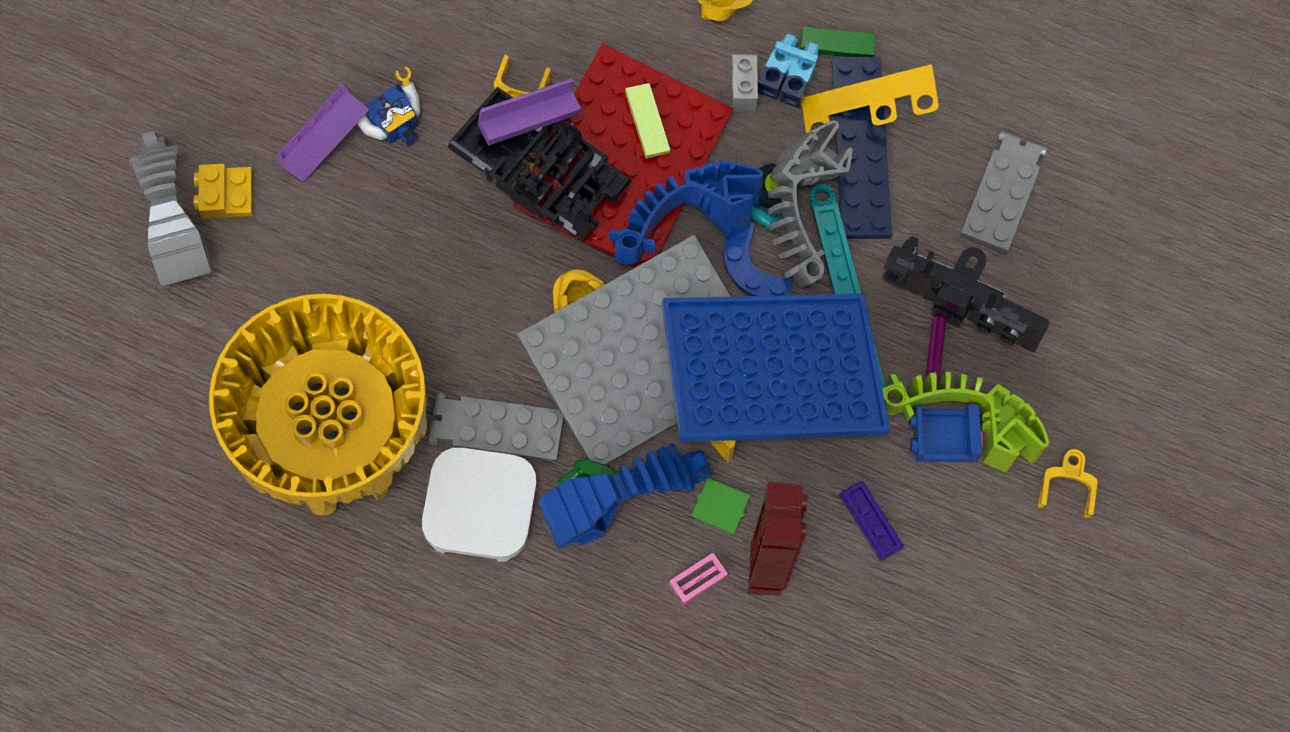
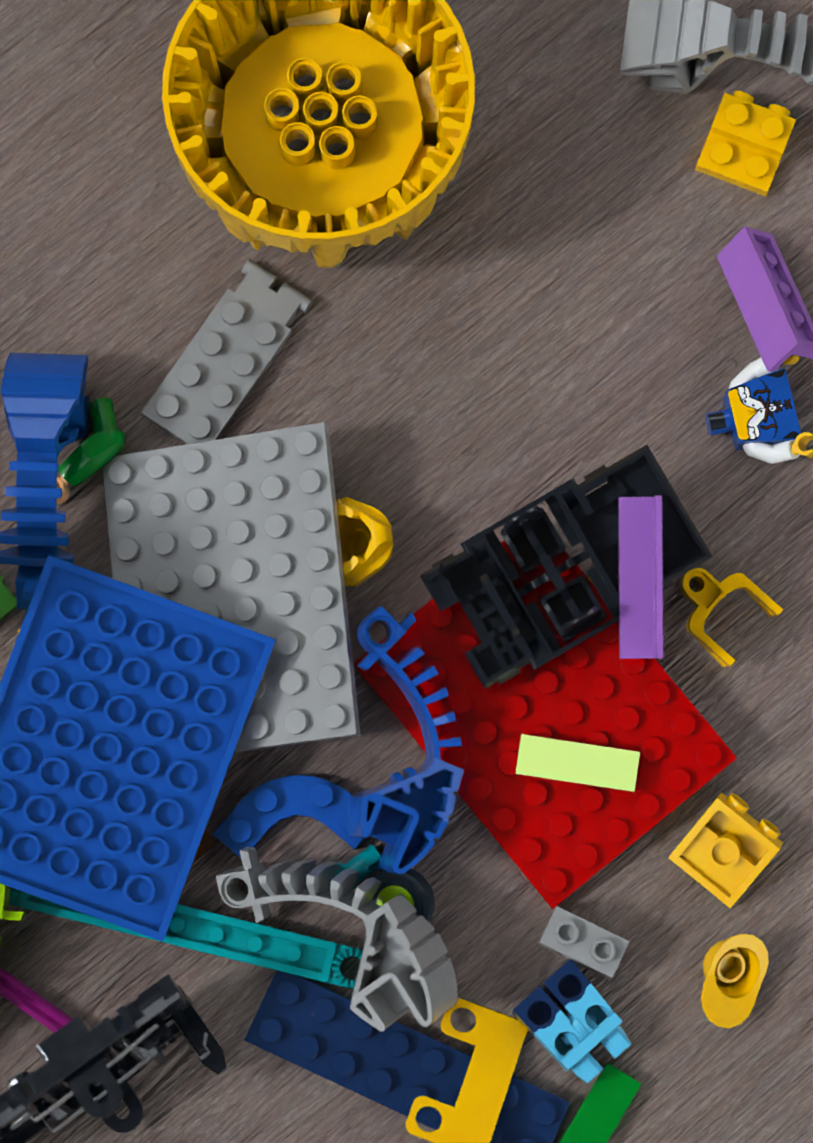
camera: 120 degrees right, 10 degrees up
(479, 503) = (128, 286): white tile -> none
(653, 33) = (727, 848): none -> yellow plate

